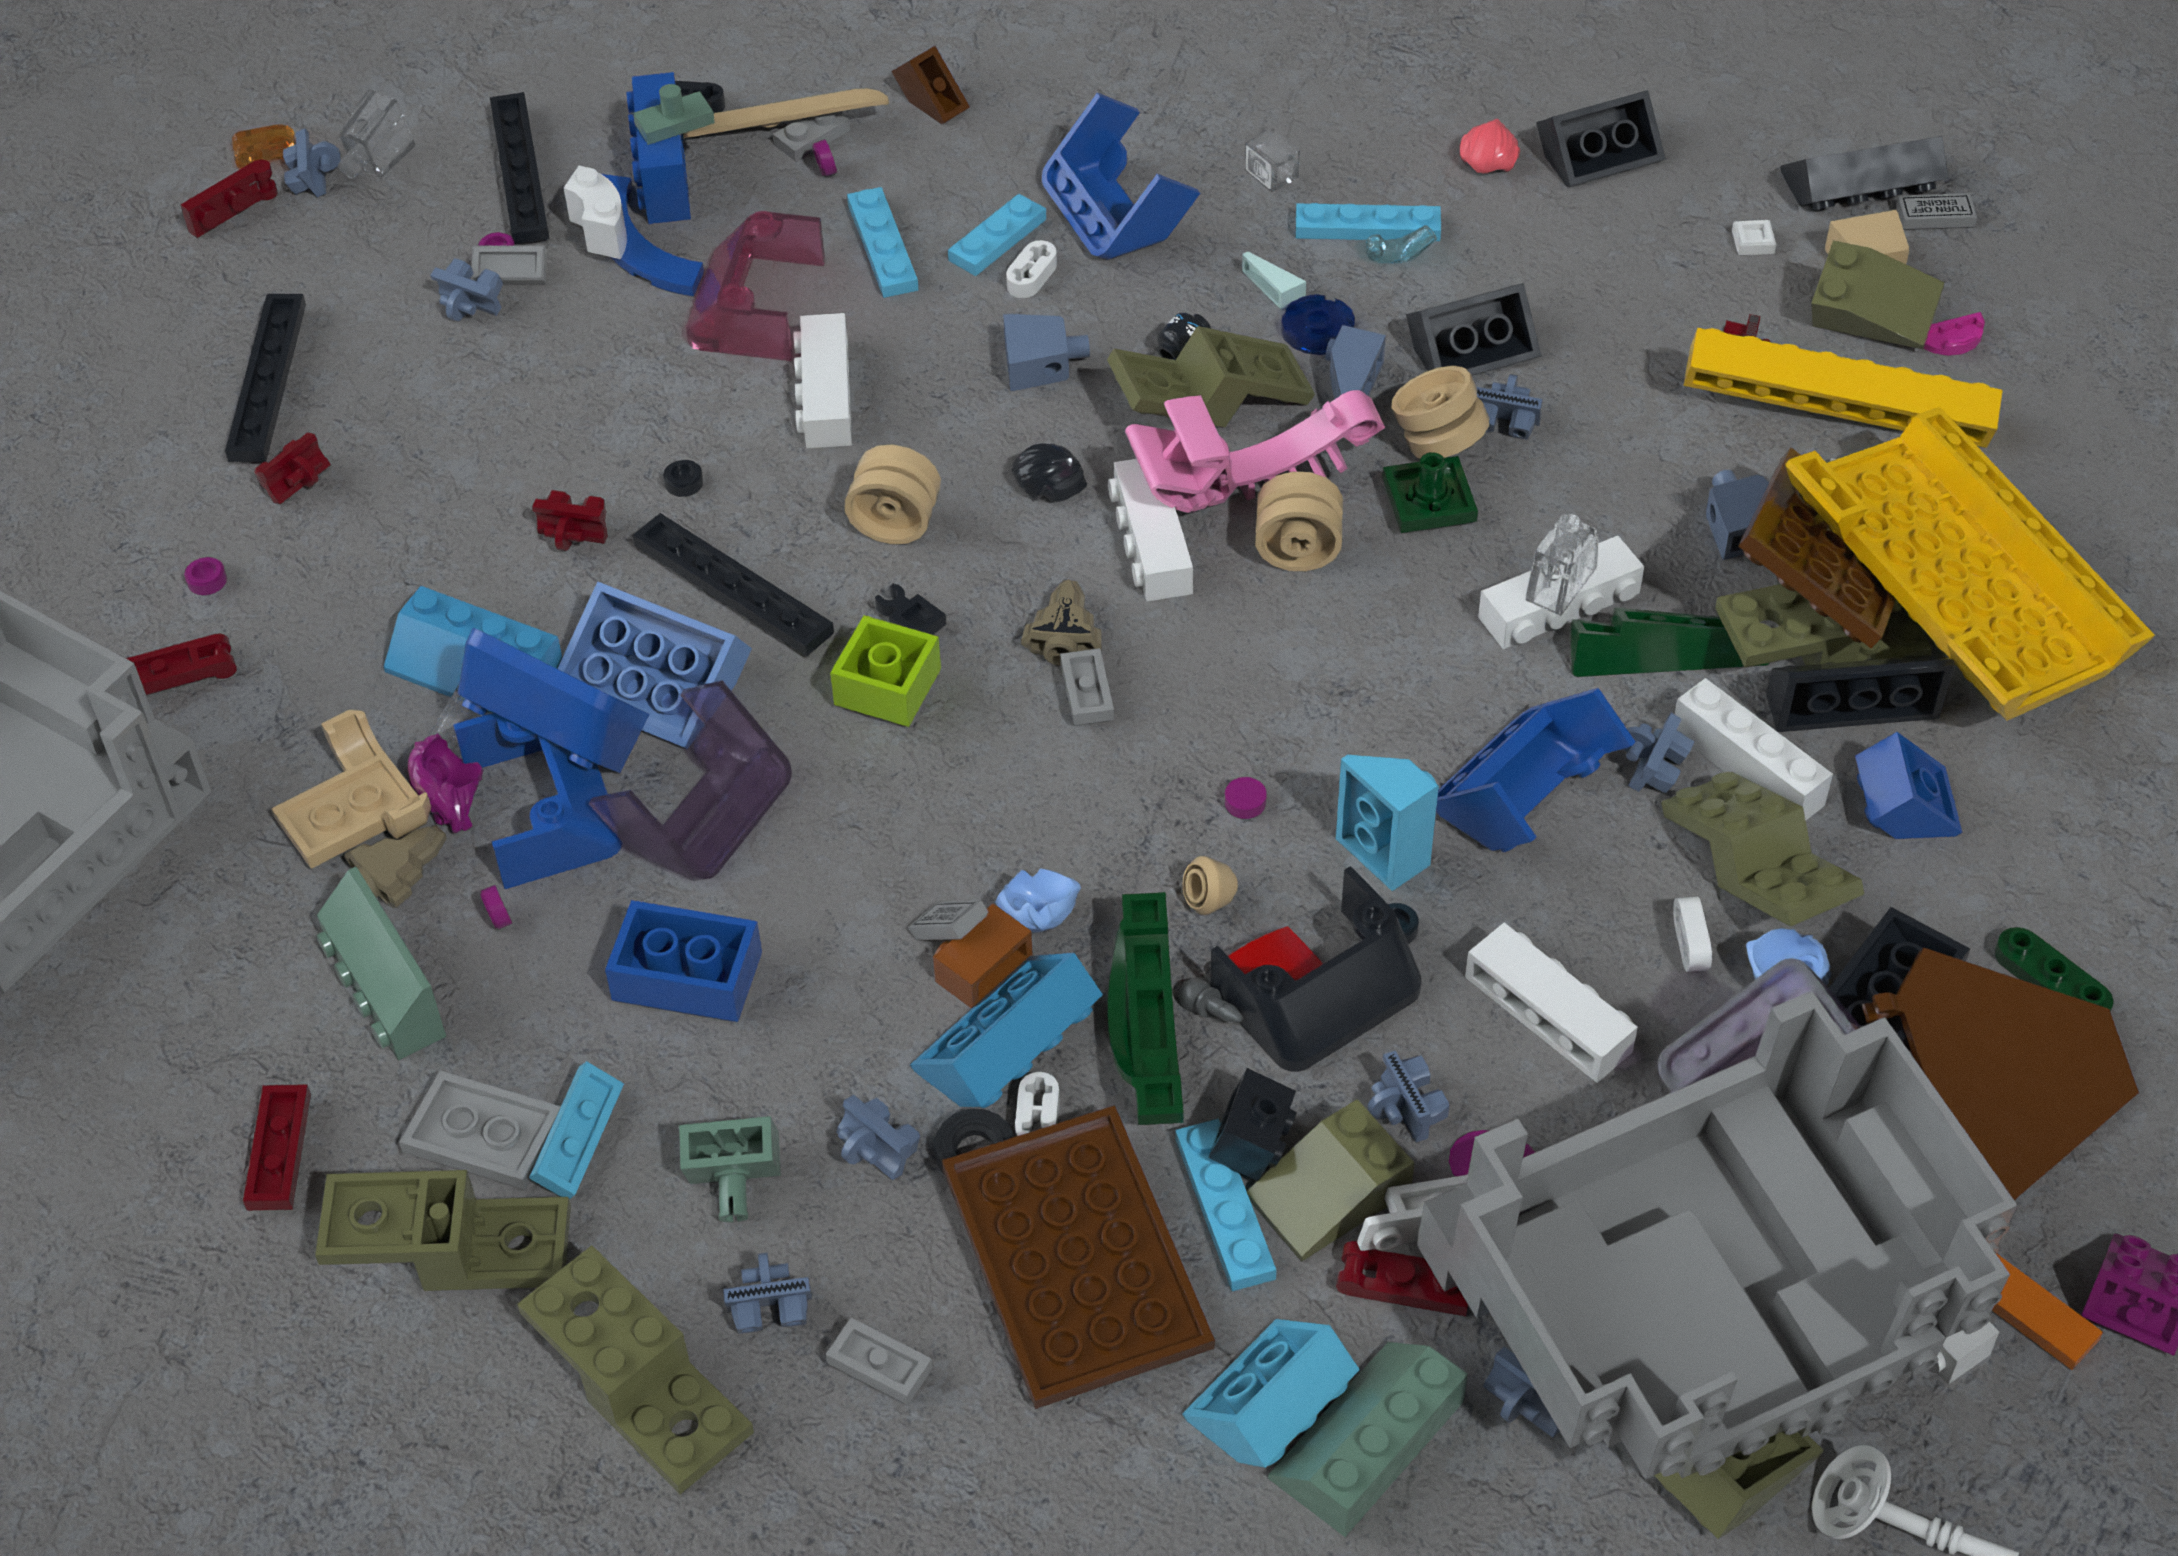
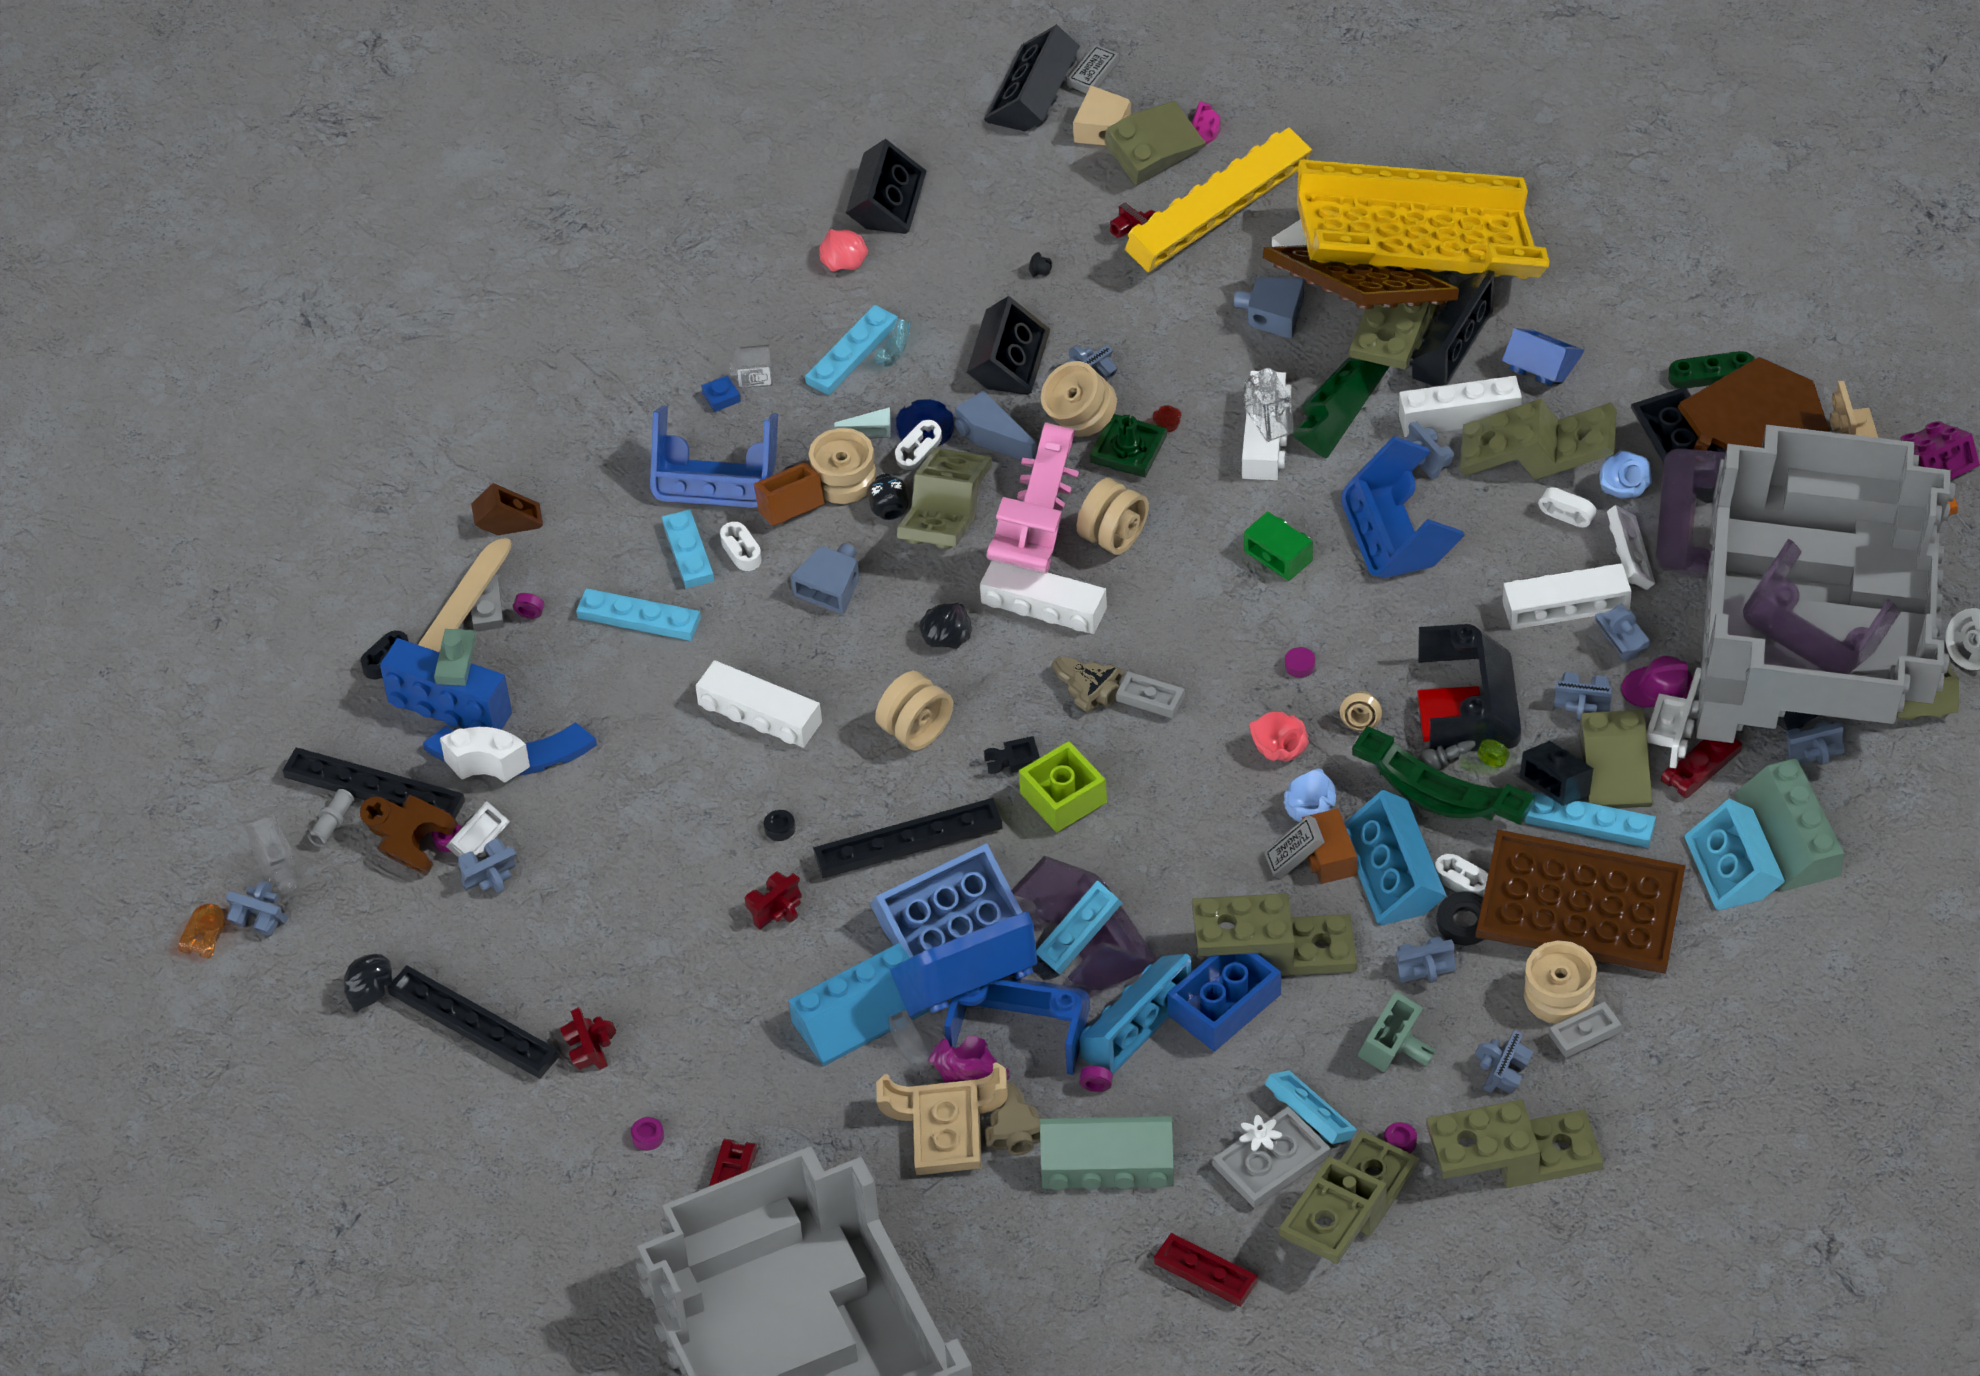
camera: 55 degrees left, 0 degrees up
(229, 197) = (253, 970): dark red plate -> none
(262, 270) = (366, 980): none -> black hair
(458, 158) = (330, 817): none -> light grey pin
(470, 207) = (405, 828): none -> reddish brown piece
(498, 1097) = (1260, 1133): none -> white plant
(593, 894) = (1135, 1015): none -> dark azure slope
(597, 1236) = (1402, 1136): none -> magenta tile
(691, 780) = (1078, 927): none -> medium azure plate
(724, 309) = (622, 722): clear pink windscreen -> none
(799, 964) = (1267, 928): none -> olive bracket
(923, 1291) = (1559, 981): none -> tan wheel
(1106, 826) = (1279, 736): none -> coral hair
(1117, 262) = (789, 493): none -> dark orange piece
(1190, 278) = (844, 464): none -> tan wheel
(1221, 159) = (721, 393): none -> blue plate
(1244, 1048) = (1493, 753): none -> clear neon green tile
(1276, 326) = (913, 440): none -> white beam
(1387, 816) = (1393, 592): medium azure slope -> none
(1394, 691) = (1278, 545): none -> green brick
(1501, 509) = (1167, 417): none -> clear red plate
(1537, 1085) = (1623, 632): none -> sand blue hips
(1618, 301) = (1039, 265): none -> black piece
(1631, 1255) = (1771, 614): none -> clear purple windscreen
(1647, 1046) = (1630, 547): none -> white plate
(1753, 237) = (1037, 168): white tile -> none
(2092, 1174) = (1847, 420): none -> tan bracket

